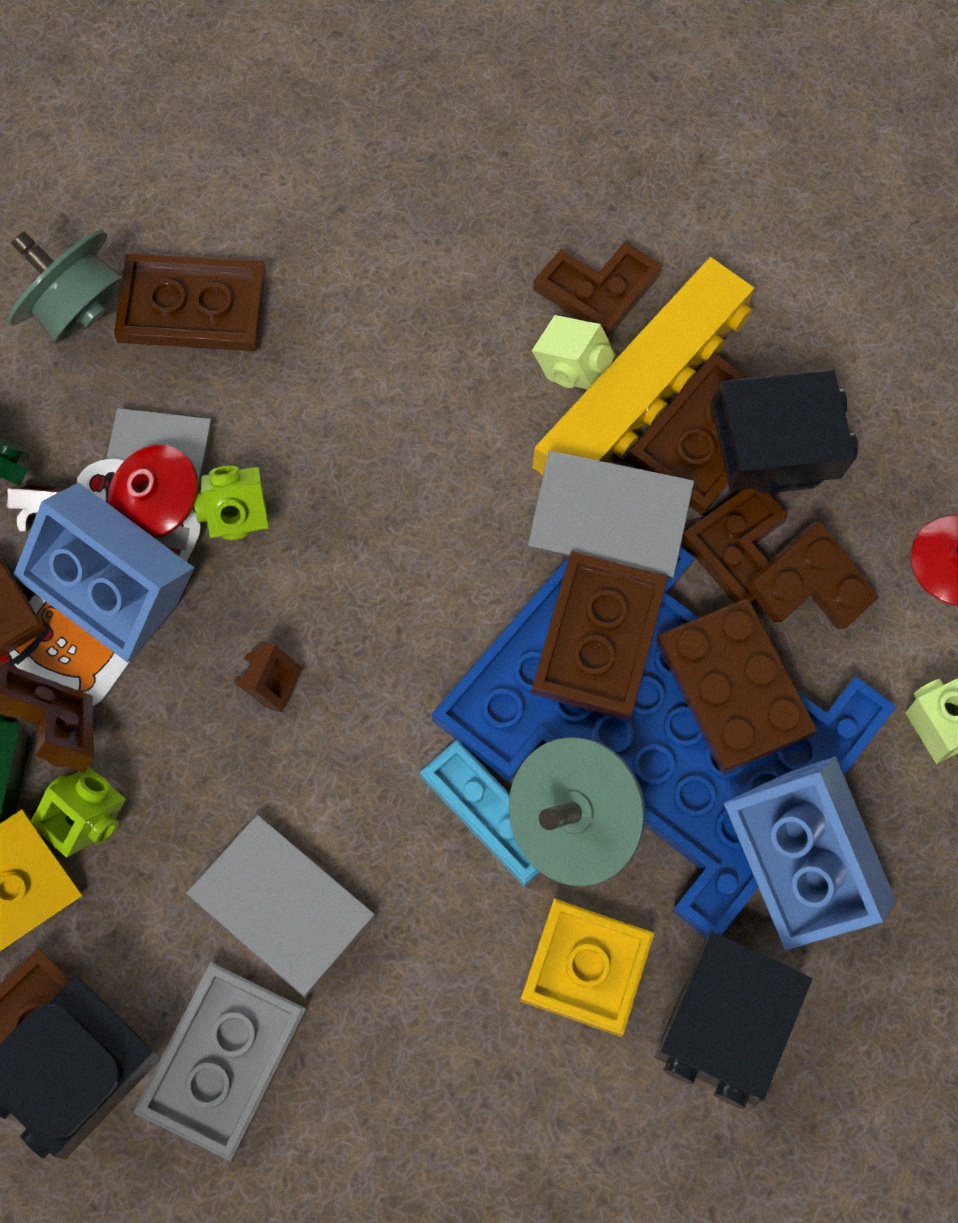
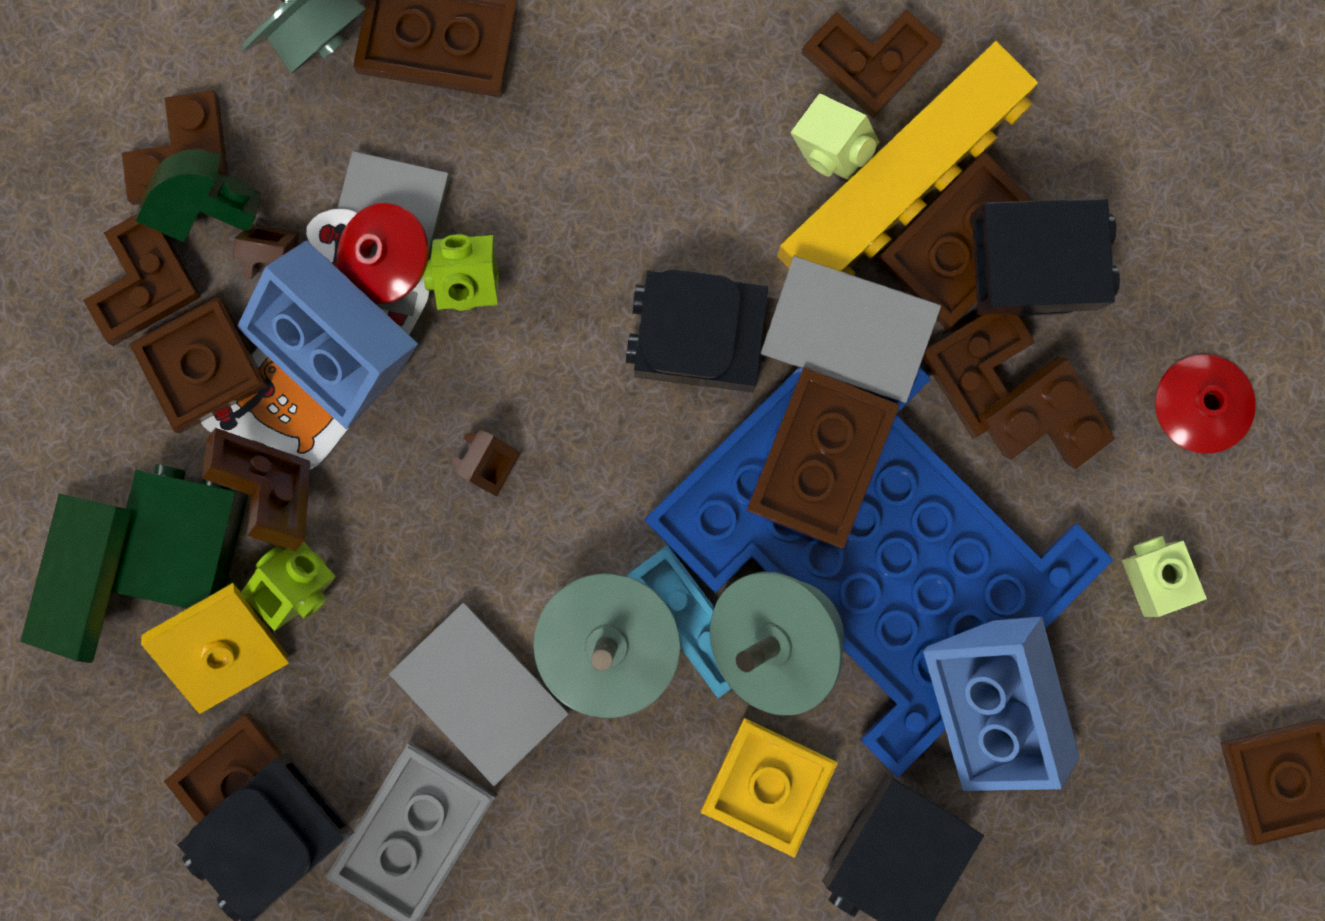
camera: 10 degrees right, 15 degrees up
(407, 833) = (606, 645): none -> sand green piece
(465, 534) = (698, 330): none -> black brick
(735, 686) = (953, 523): reddish brown plate -> none

